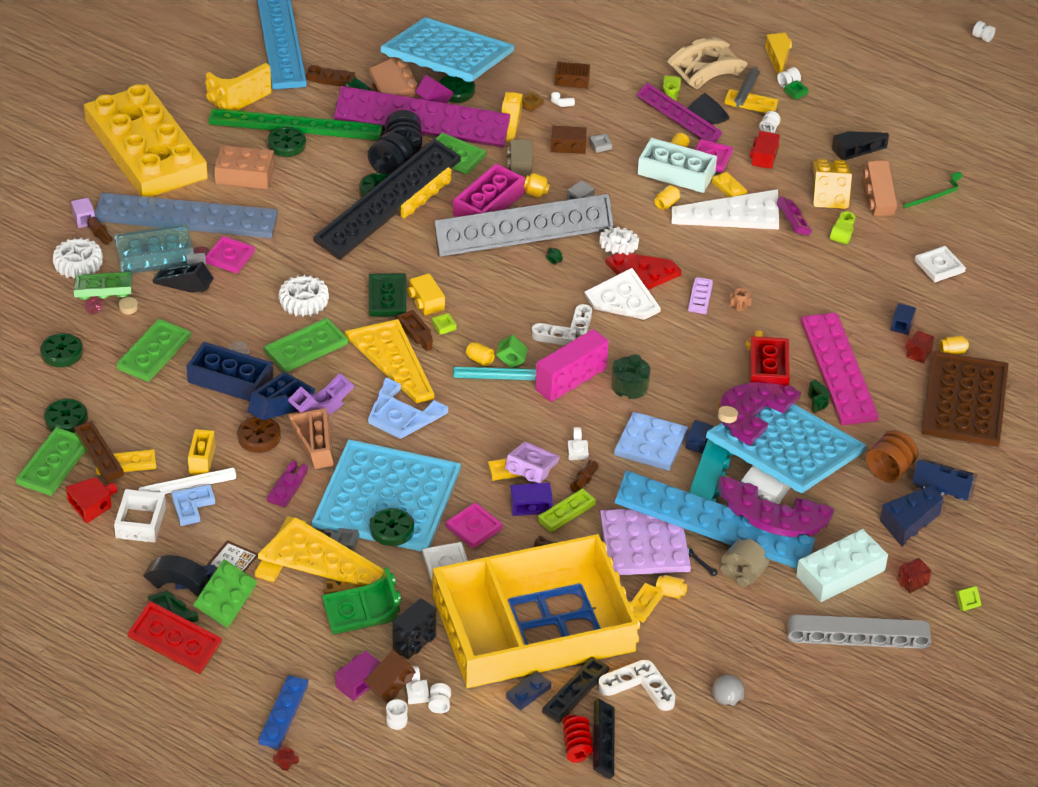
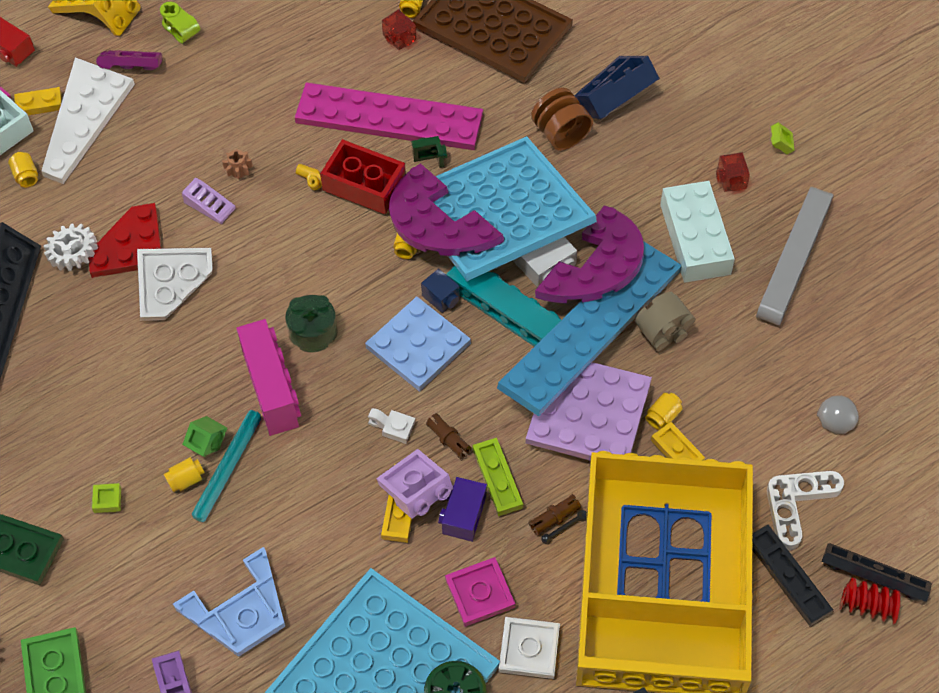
camera: 65 degrees left, 15 degrees up
(392, 353) = (120, 582): yellow wing -> none
(416, 329) = (97, 535): reddish brown hinge -> none
(426, 294) = (43, 499): yellow brick -> none
(528, 690) = (770, 629): dark blue plate -> none
(554, 256) = (55, 326): dark green plate -> none
(569, 334) = (195, 362): white beam -> none
(713, 572) = (652, 360): black hinge -> none
(727, 414) = (454, 242): tan tile -> none
(903, 319) = (349, 27): dark blue brick -> none
(911, 512) = (647, 138): dark blue wedge -> none

